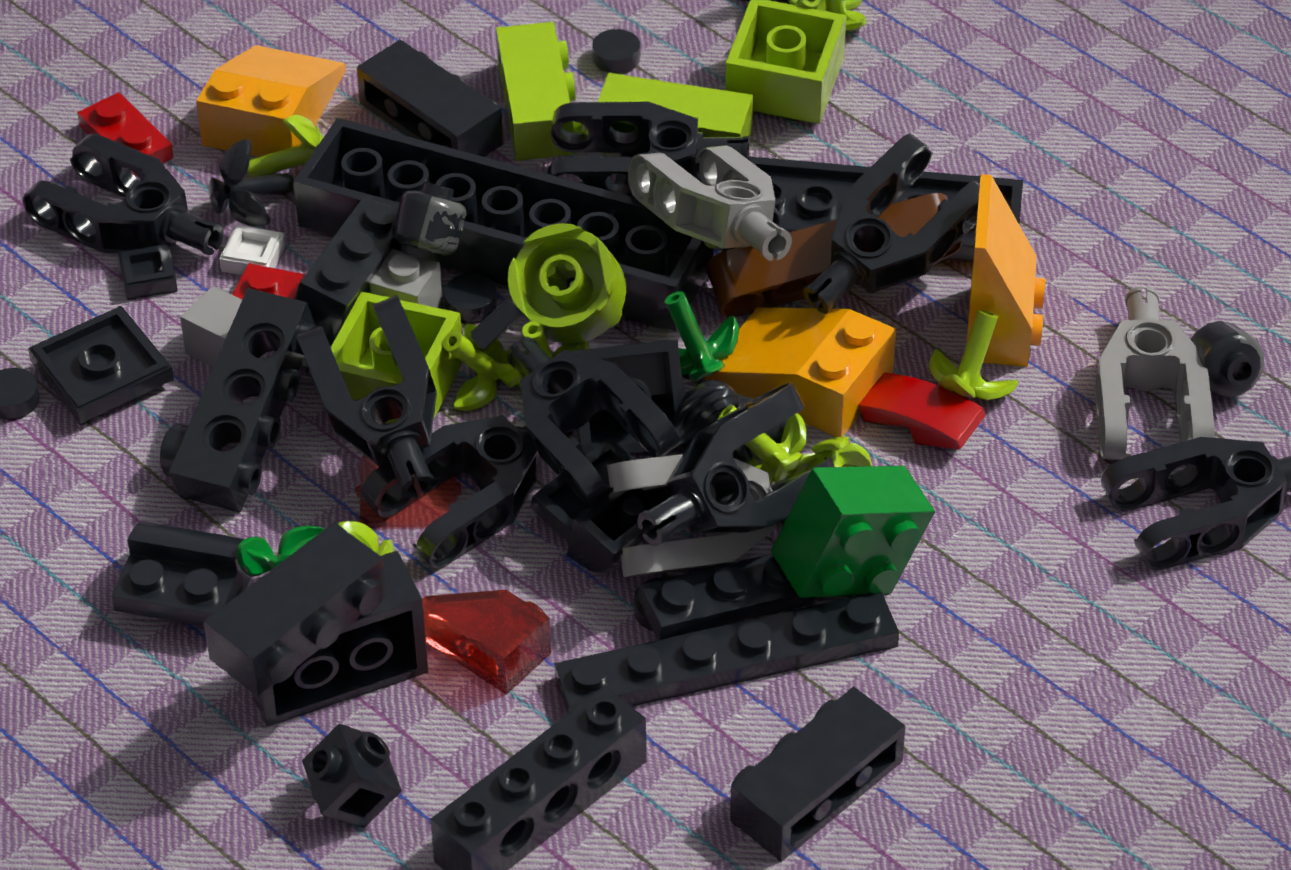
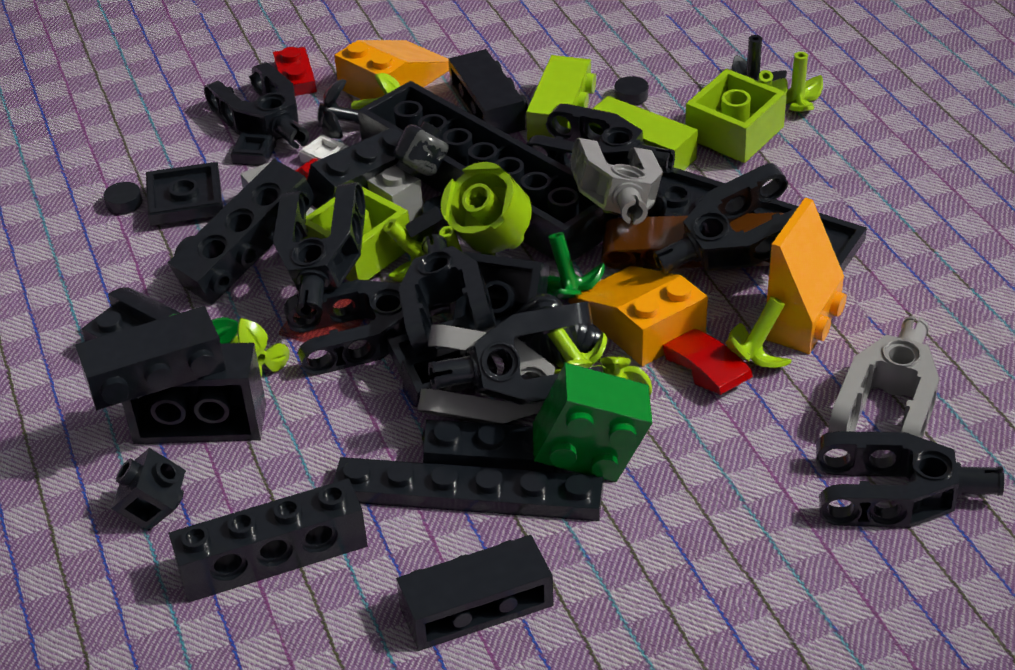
camera: 25 degrees right, 5 degrees down
(489, 634) = (309, 424): clear red slope -> none
(1230, 356) = (960, 384): black head -> none

